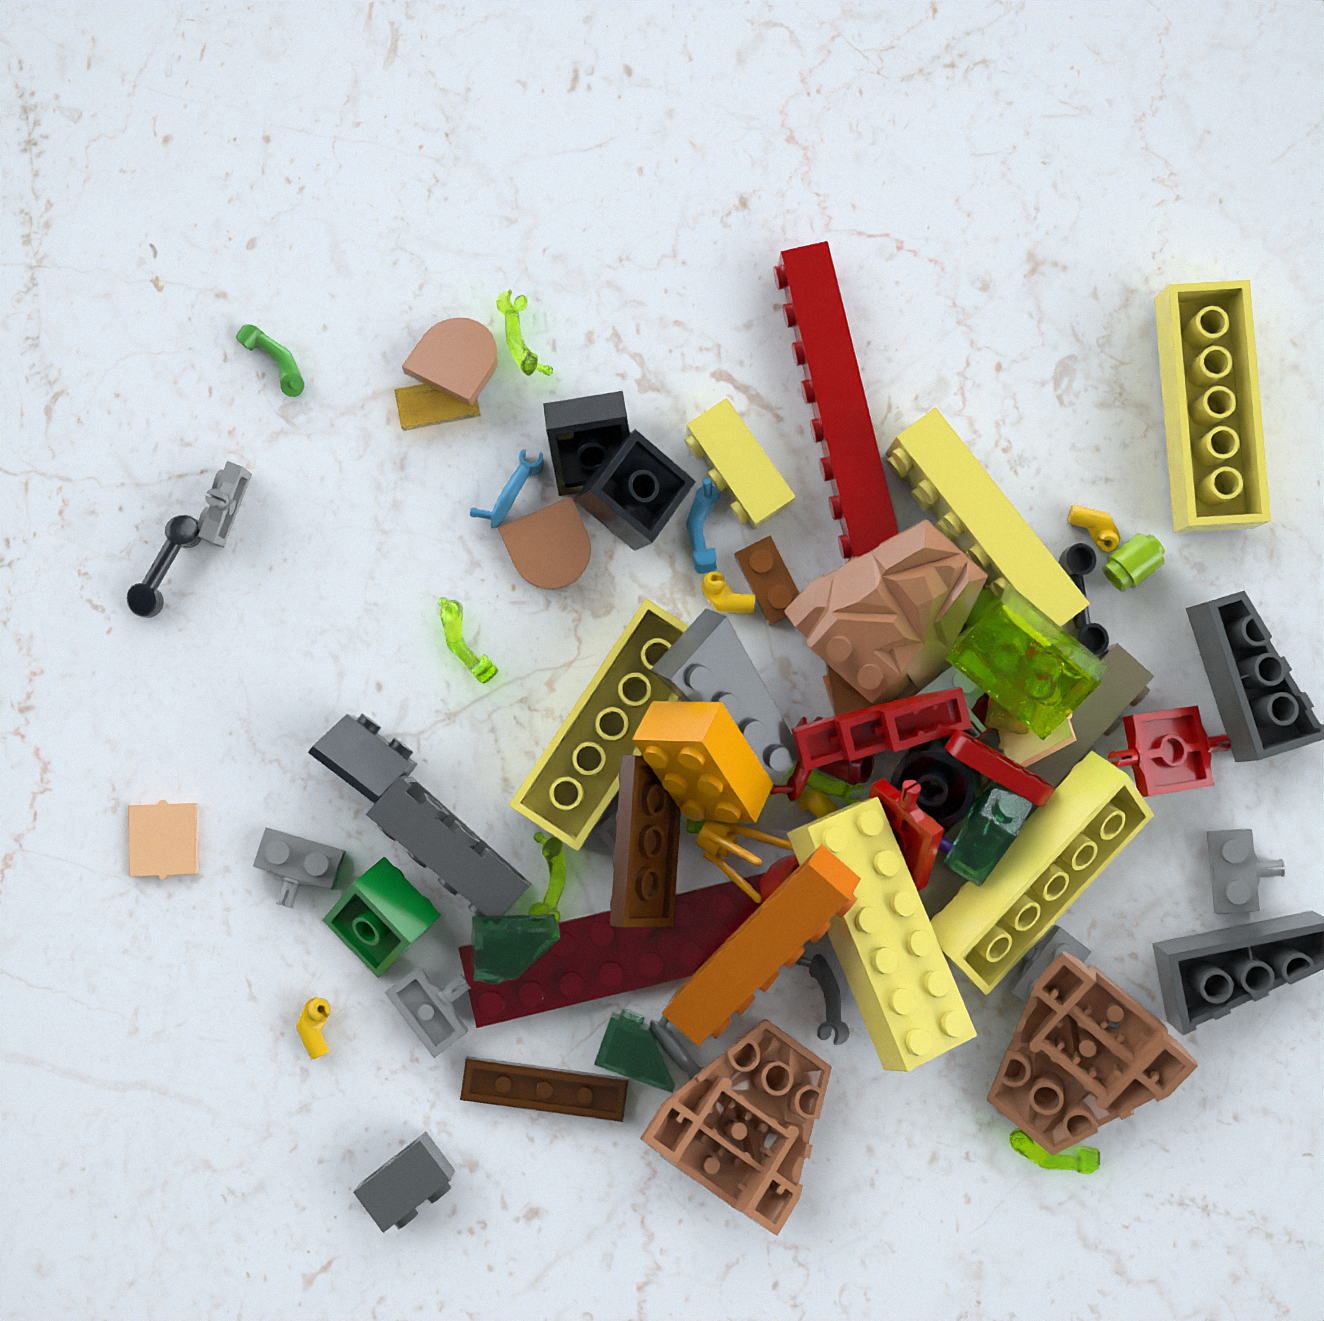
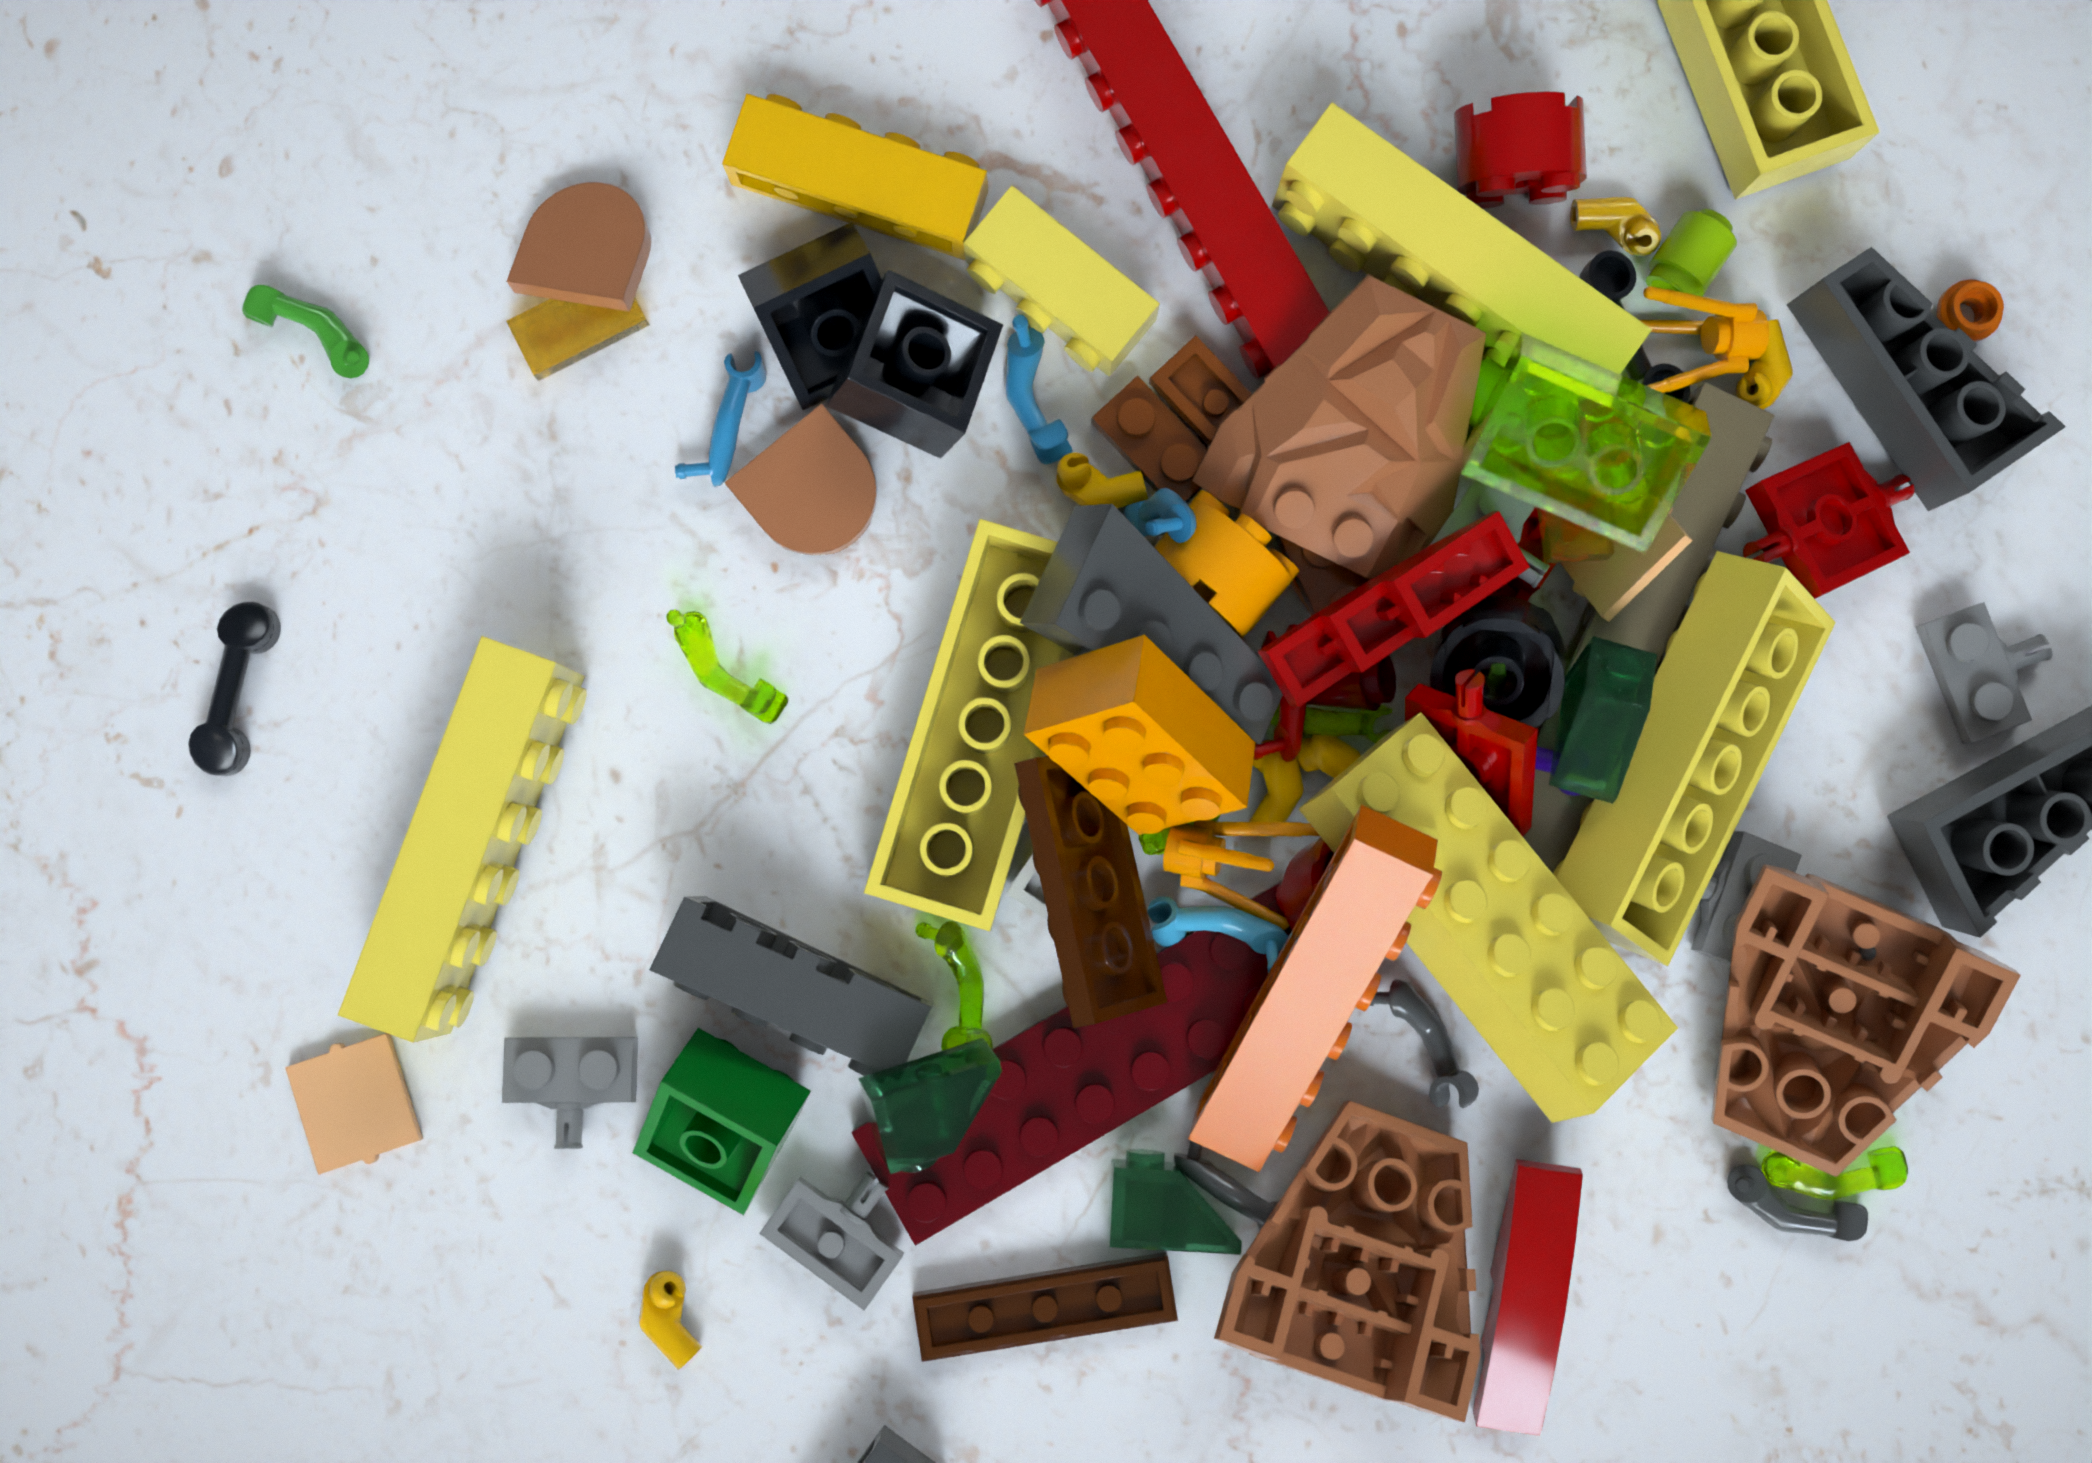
camera: 20 degrees left, 0 degrees up
(225, 499) = (298, 564): light grey plate -> none
(276, 703) = (464, 844): none -> light yellow brick
(363, 756) = (620, 885): slope -> none
(523, 356) = (687, 215): clear neon green piece -> none
(634, 362) = (856, 174): none -> yellow brick
(693, 878) = (1175, 922): none -> medium azure piece
(757, 628) = (1161, 514): none -> dark azure piece
(784, 815) = (1283, 787): none -> yellow arm
(787, 668) = (1229, 564): none -> light orange brick
(806, 554) = (1199, 388): none -> dark orange plate
(840, 1172) = (1528, 1296): none -> red slope
(999, 768) = (1590, 615): red beam -> none
(1001, 1150) = (1753, 1189): none -> dark grey piece
(1046, 464) = (1521, 147): none -> red brick
(1143, 615) = (1733, 335): none -> light orange plant
(1162, 646) = (1769, 373): none -> yellow arm
(1310, 644) = (1983, 300): none -> orange plate

